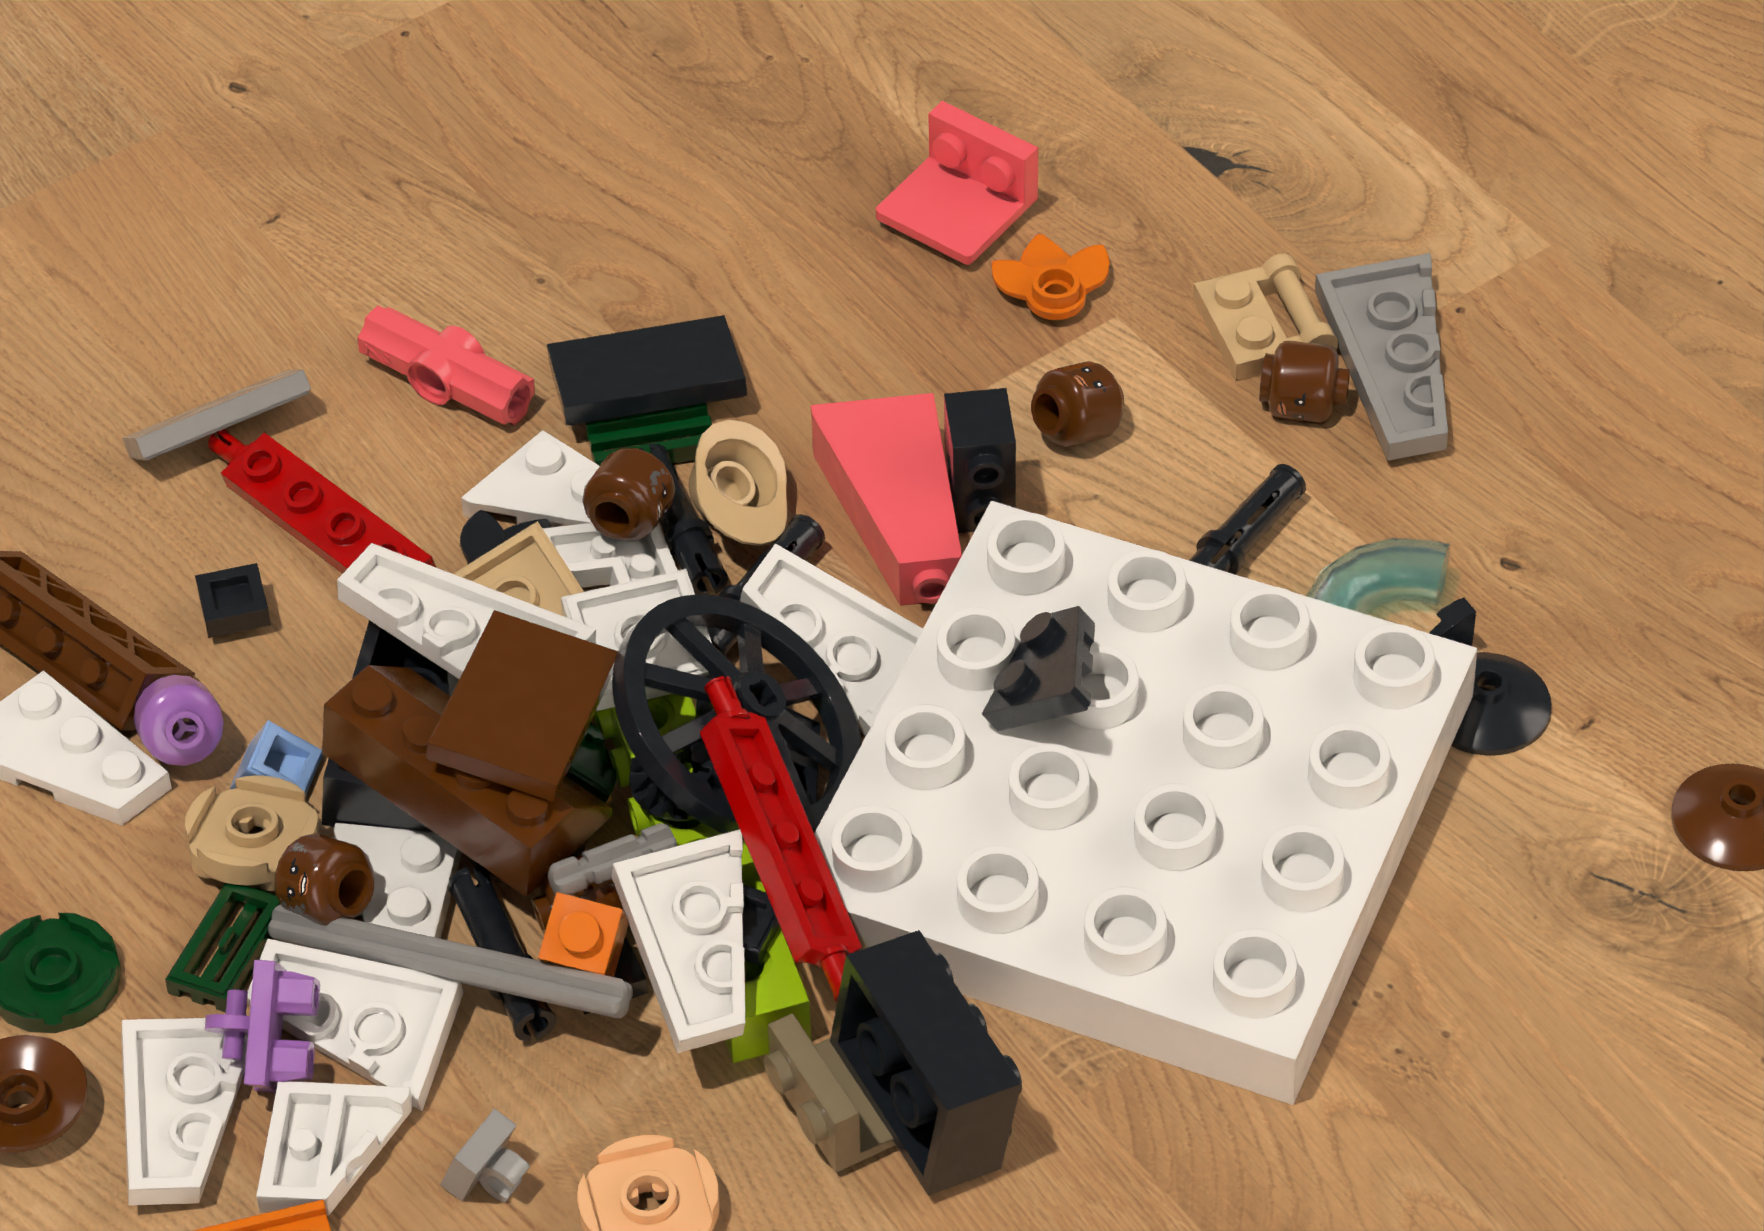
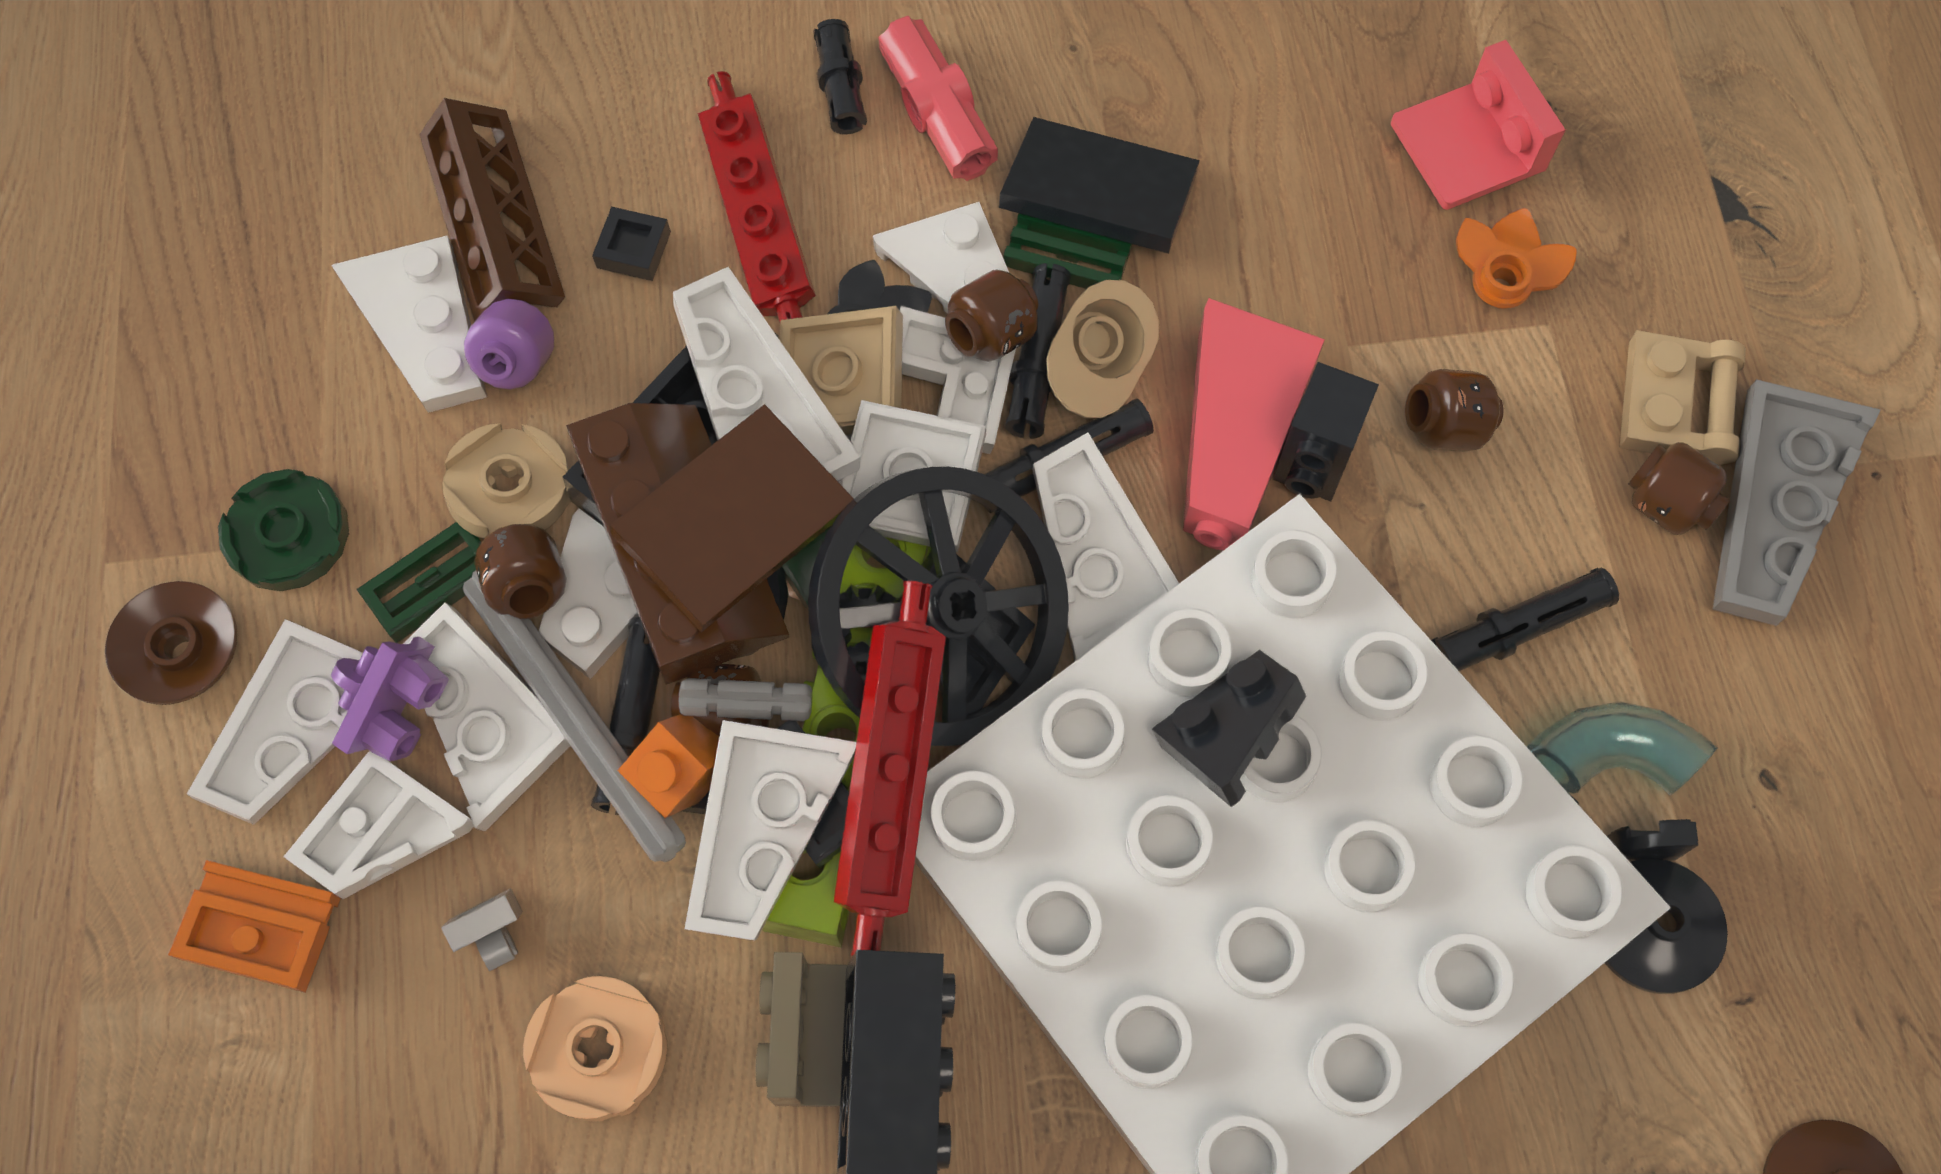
camera: 30 degrees right, 20 degrees up
(217, 415) = (726, 56): light grey tile -> none
(280, 755) = (568, 408): light blue slope -> none
(338, 389) = (840, 76): none -> black pin

